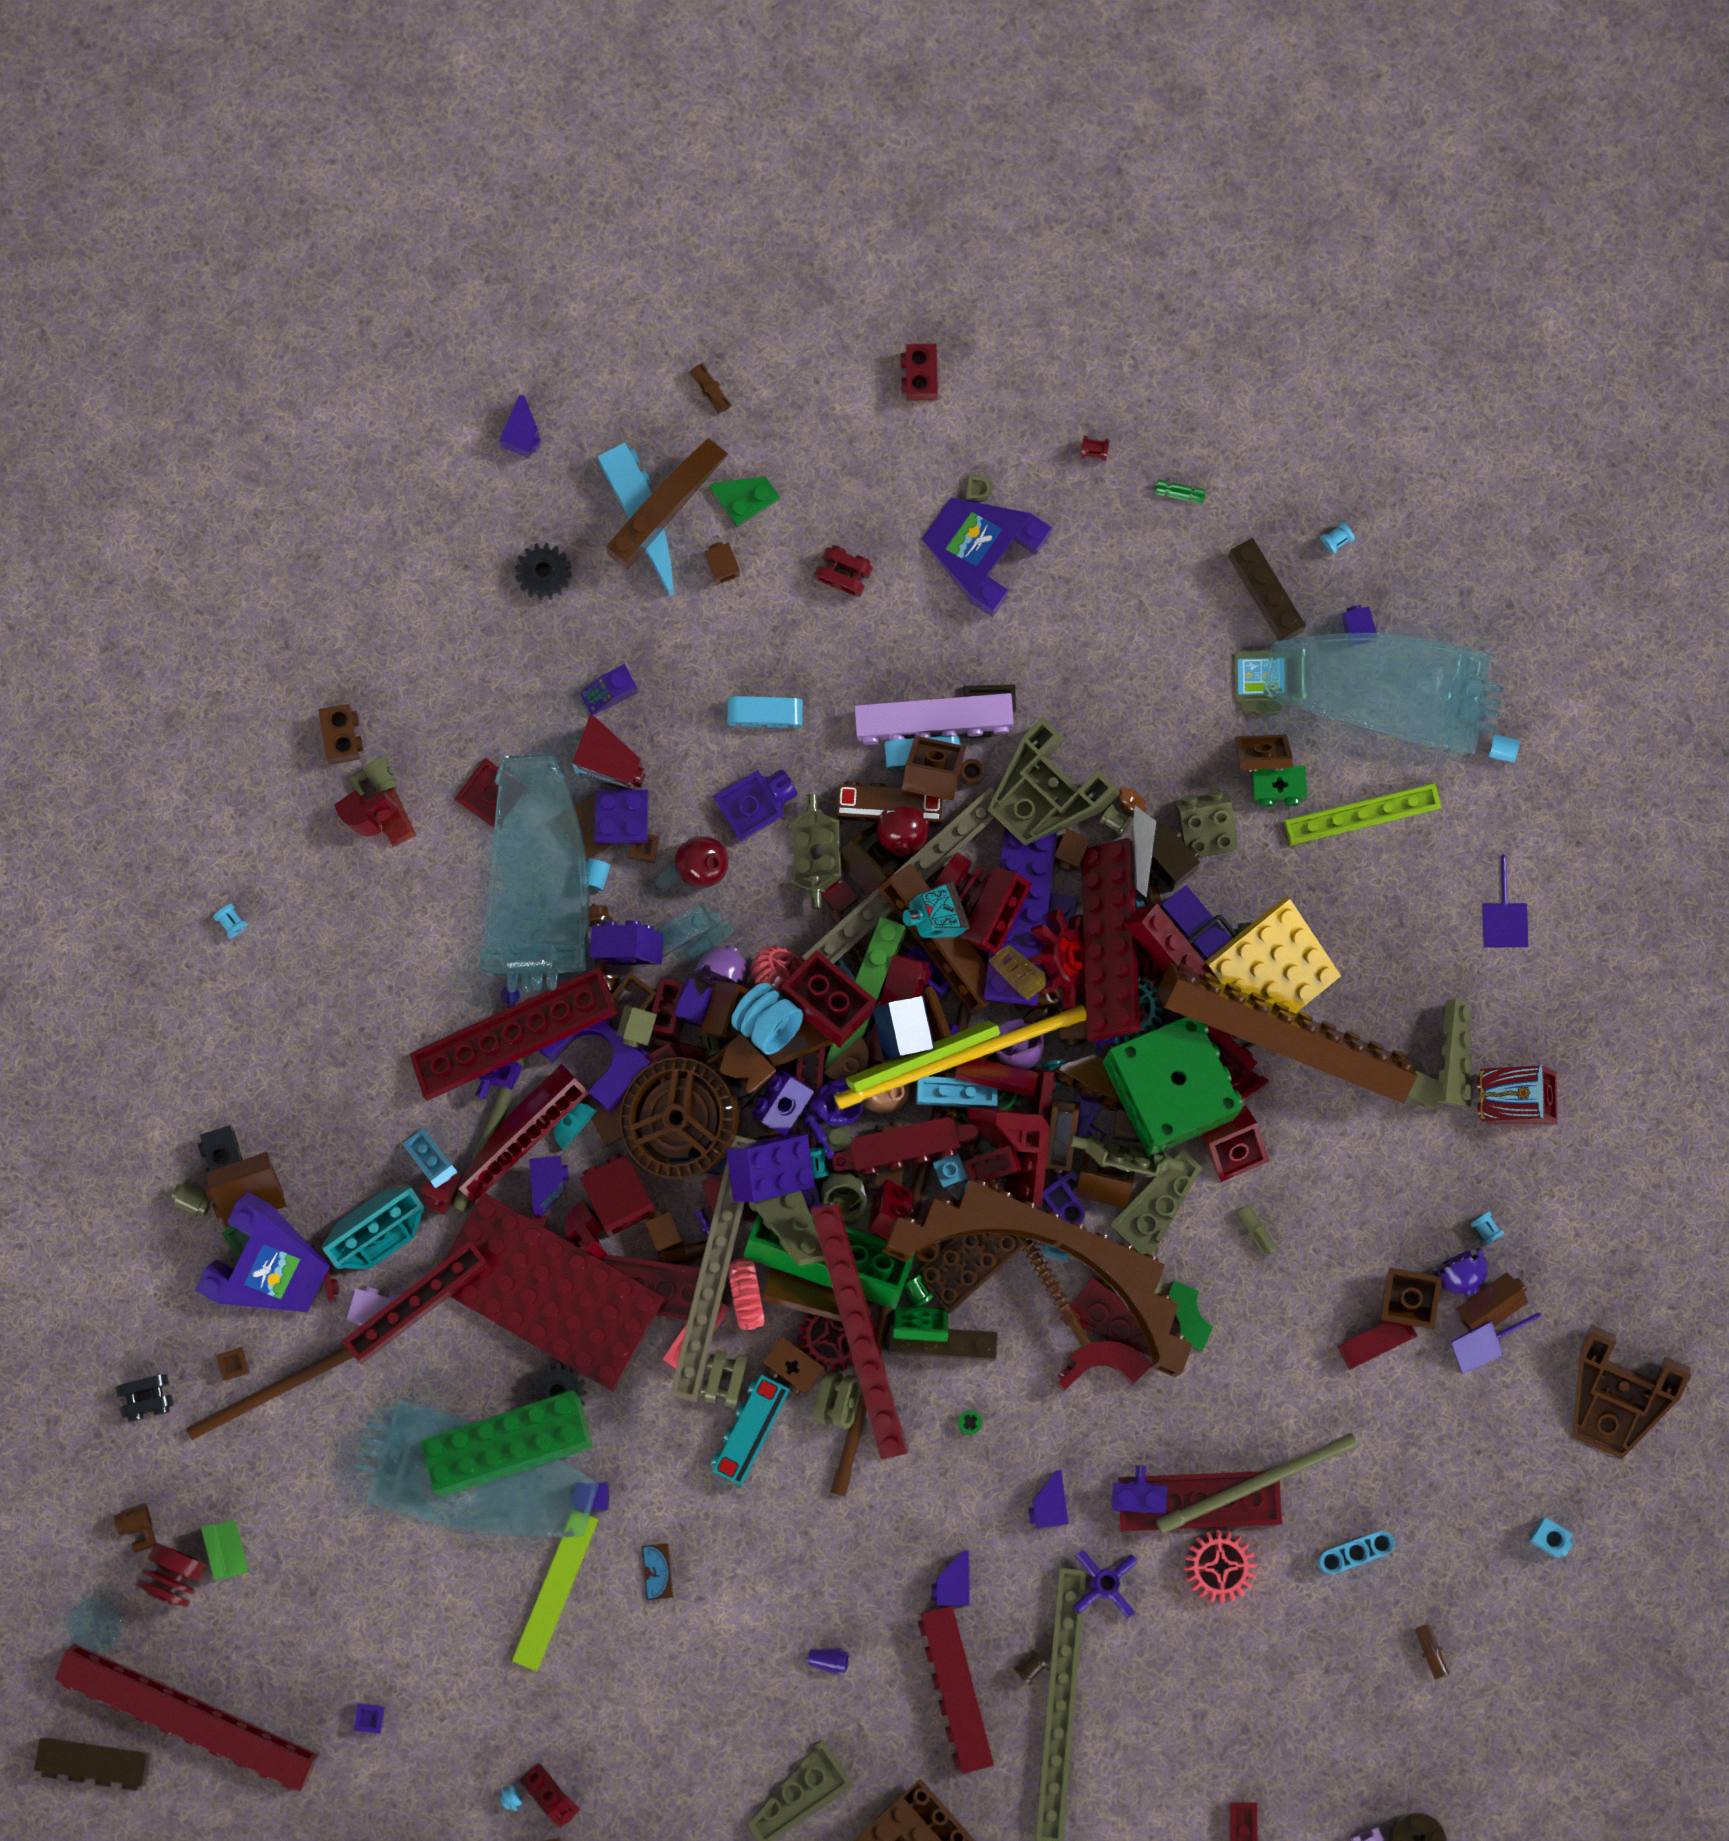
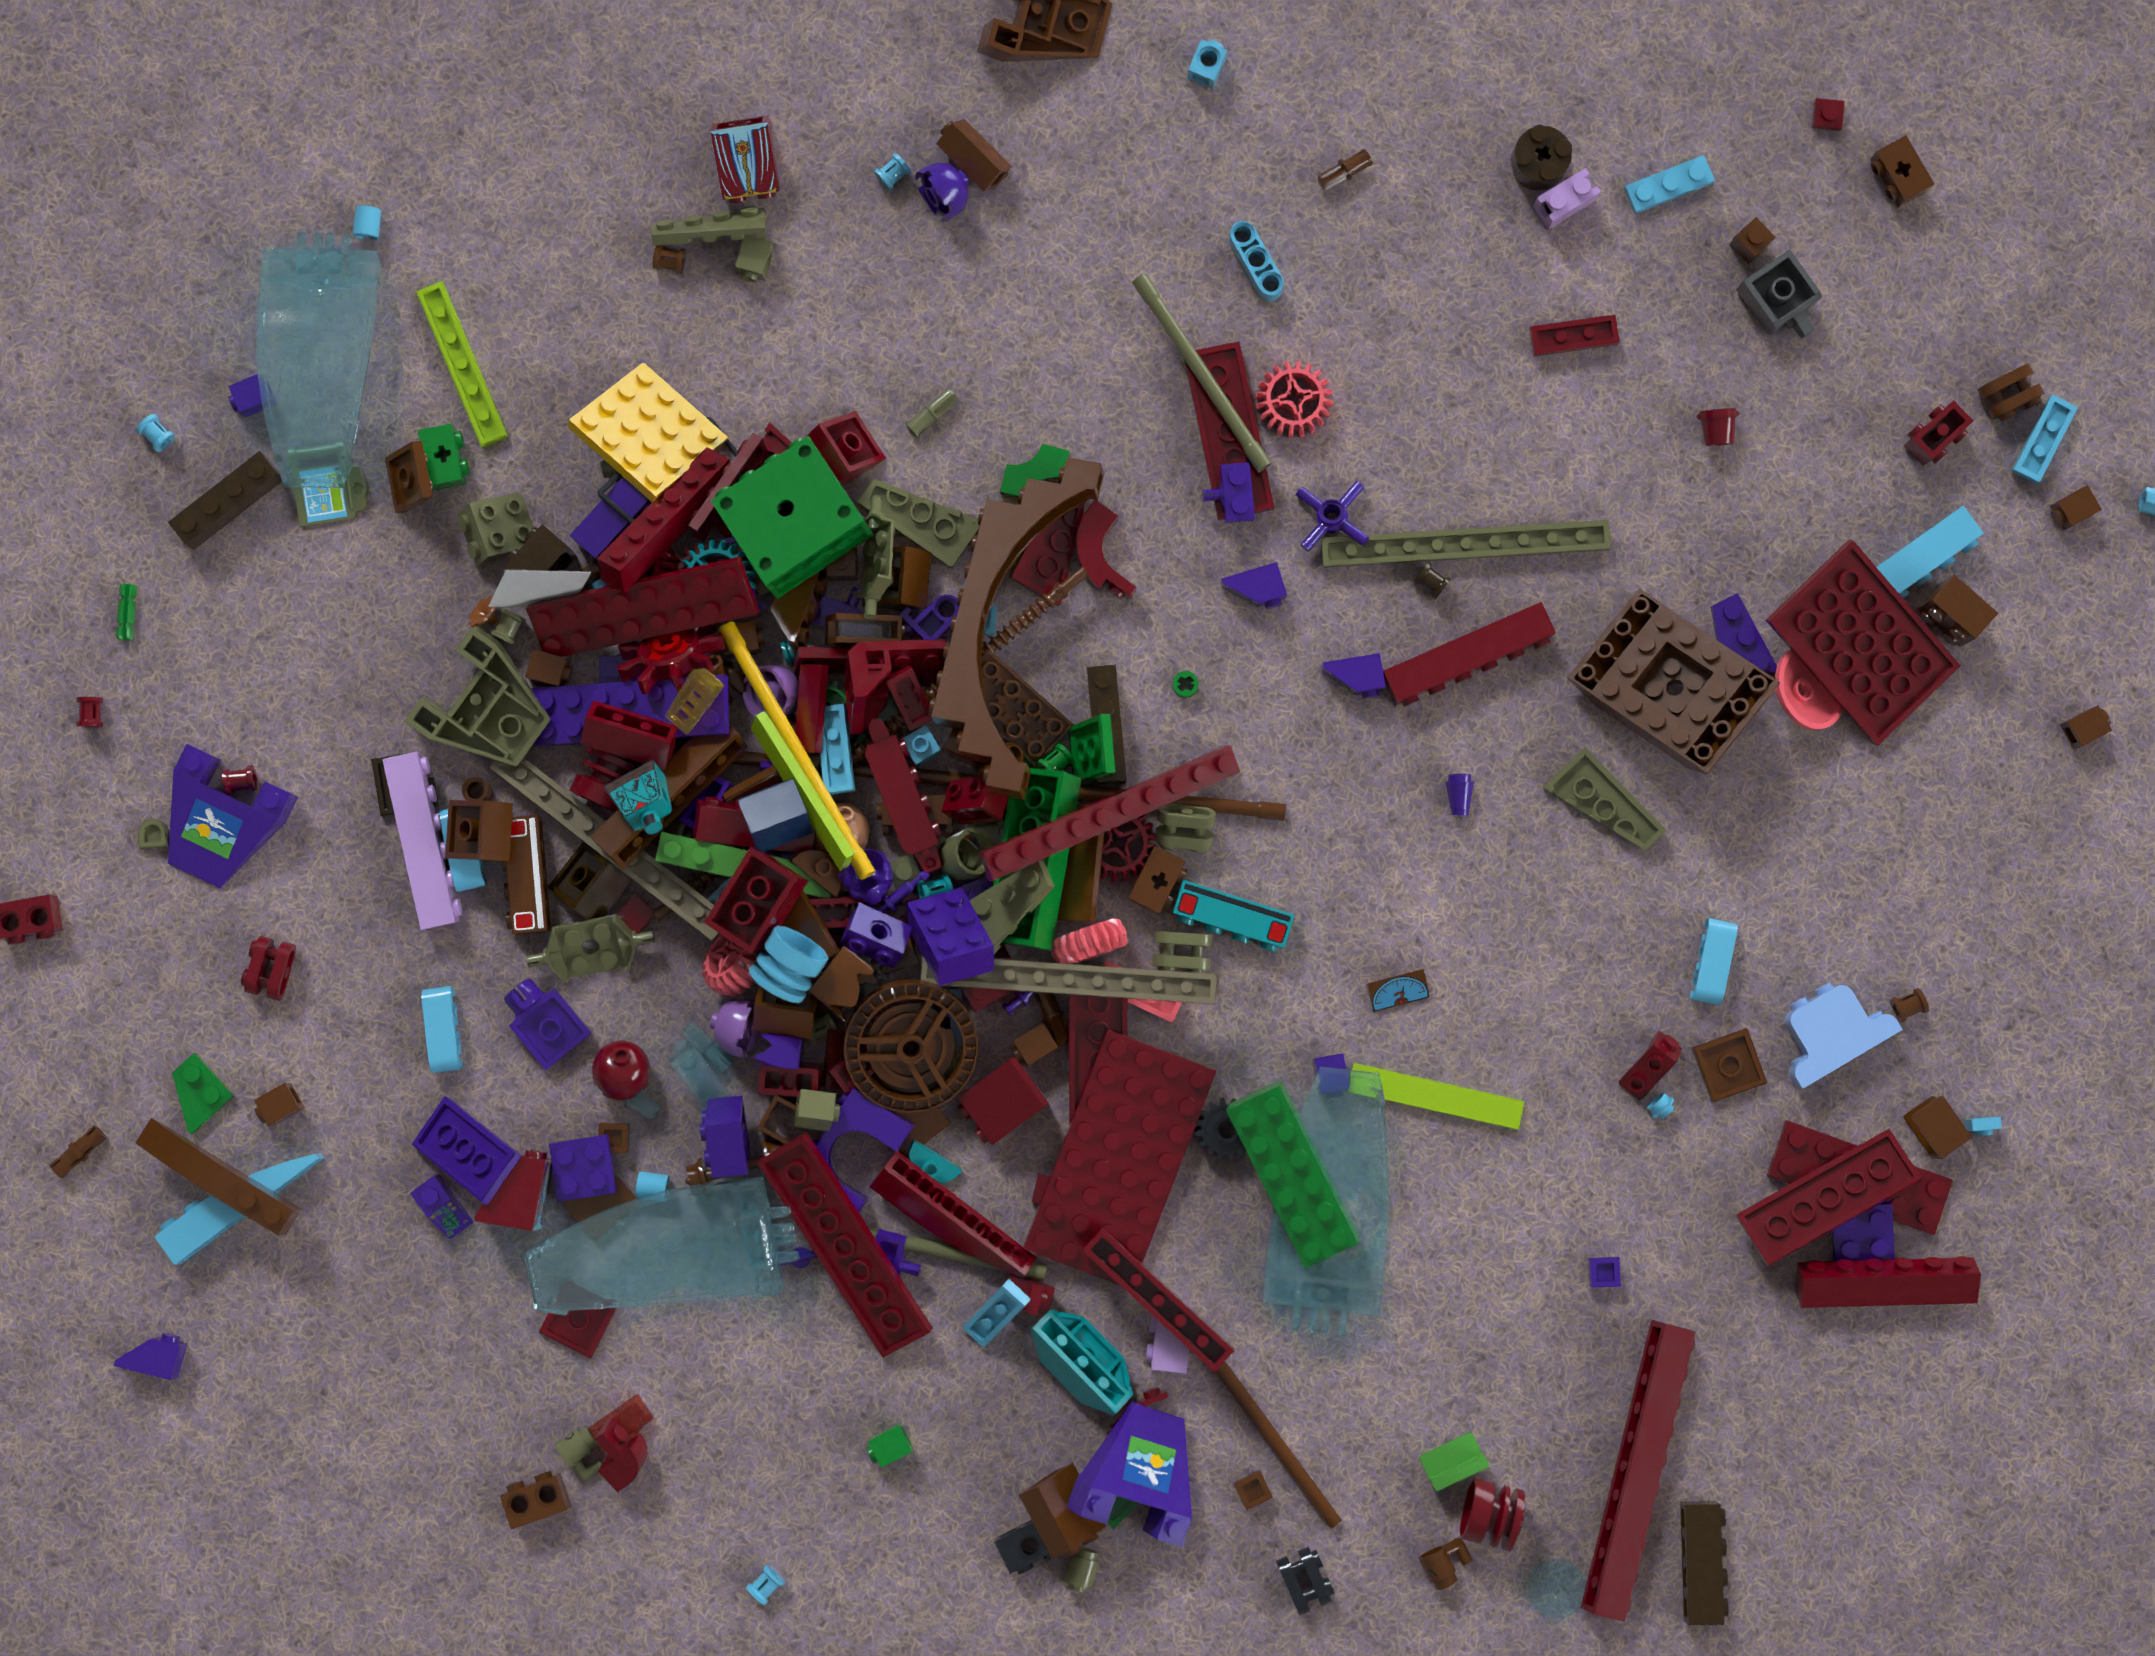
camera: 100 degrees left, 5 degrees up
(331, 1047) = (889, 1445): none -> green brick
(543, 558) = (331, 1297): black gear -> none
(547, 1182) = (1001, 1179): dark purple slope -> none
(582, 1227) = (1045, 1132): dark red brick -> none
(653, 717) = (466, 1150): none -> dark purple tile
(902, 830) = (554, 854): dark red cylinder -> none
(1014, 568) = (239, 780): none -> dark red bush
(1287, 1032) = (716, 404): reddish brown brick -> none
(1375, 1342) = (1031, 268): dark red beam -> none
(1410, 1298) = (981, 238): reddish brown slope -> none
(1433, 1013) = (659, 261): none -> reddish brown bush
(1482, 1344) = (1015, 159): piece -> none
(1505, 922) = (558, 198): dark purple piece -> none

